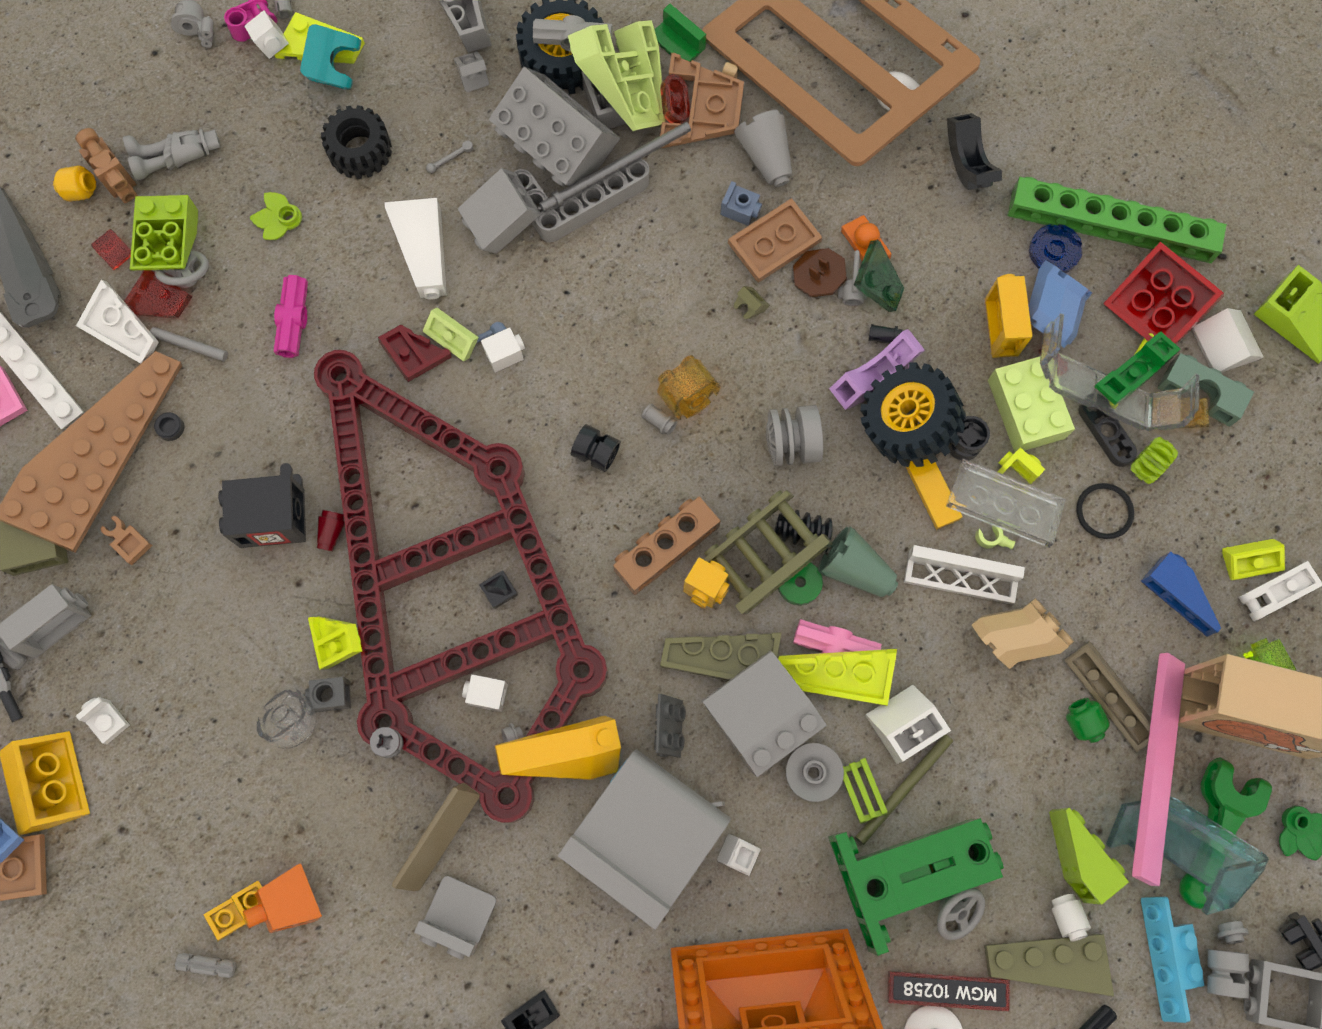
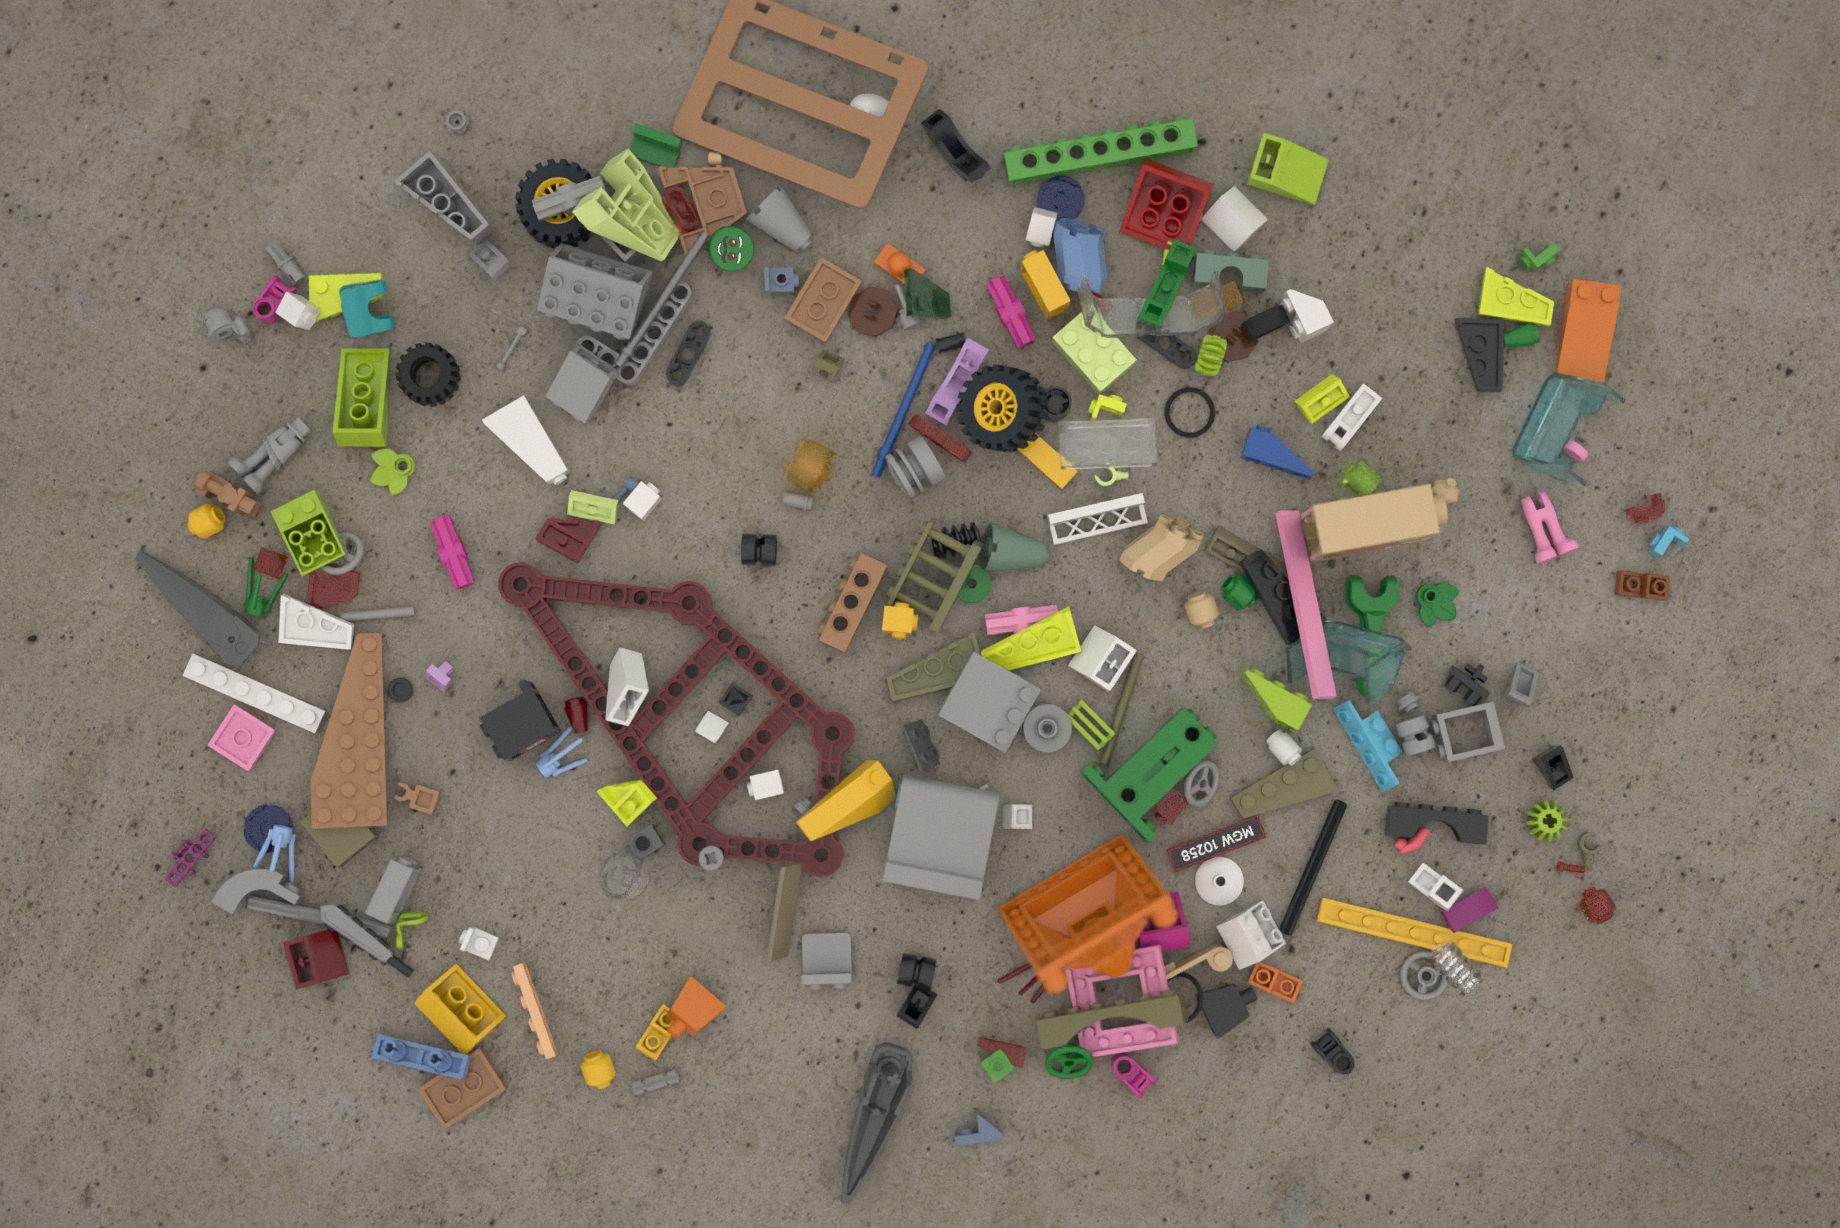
camera: 25 degrees left, 10 degrees up
(27, 675) = (399, 926): none -> lime piece
(76, 281) = (256, 604): none -> green plant
(121, 813) = (530, 1000): none -> light nougat plate
(150, 920) = (598, 1069): none -> yellow head
(214, 428) = (440, 676): none -> lavender tile
(276, 565) = (550, 763): none -> light blue plant
(282, 140) = (362, 398): none -> lime slope
(389, 521) = (625, 686): none -> white slope
(459, 606) = (711, 727): none -> white slope
(548, 978) = (916, 971): none -> black wheel
(615, 244) = (684, 344): none -> black beam
(707, 152) = (731, 248): none -> green head
(807, 378) = (903, 410): none -> blue bar
(833, 422) = (940, 438): none -> clear red beam
(913, 924) = (1169, 806): none -> clear red bracket
(959, 331) = (1010, 311): none -> dark pink piece
(1027, 261) = (1041, 227): none -> white brick
(1038, 720) = (1201, 609): none -> tan head
(1126, 739) = (1274, 593): none -> black wing
(1191, 458) = (1231, 330): none -> reddish brown piece
(1227, 451) = (1265, 322): none -> black tyre
(1273, 462) = (1306, 314): none -> white slope

